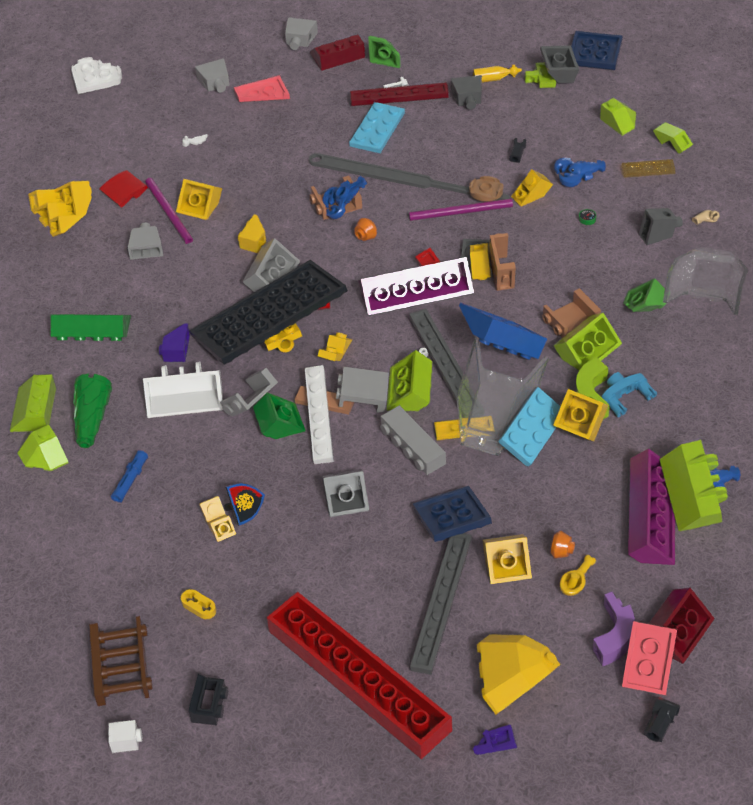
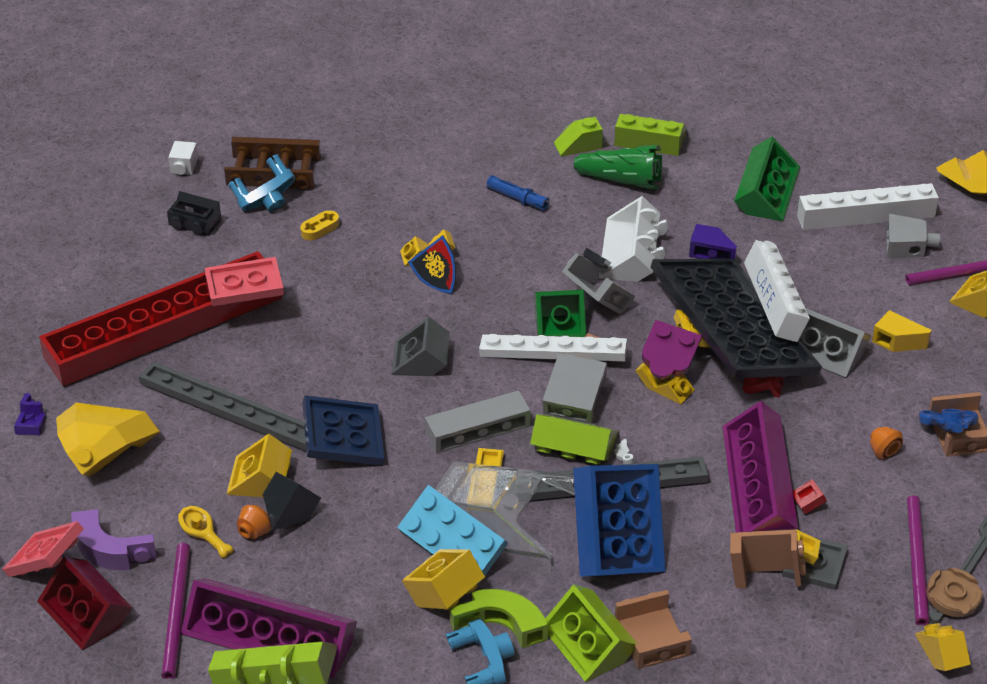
camera: 100 degrees right, 5 degrees down
(115, 265) = (866, 206): none -> white brick
(169, 648) = (269, 193): none -> dark azure connector
(214, 403) = (597, 259): none -> black tile
(235, 291) = (776, 291): none -> white brick
(317, 607) = (244, 281): none -> coral plate
(318, 337) = (669, 350): none -> magenta plate
(539, 524) = (288, 502): none -> black slope
(656, 571) = (175, 611): none -> magenta piece

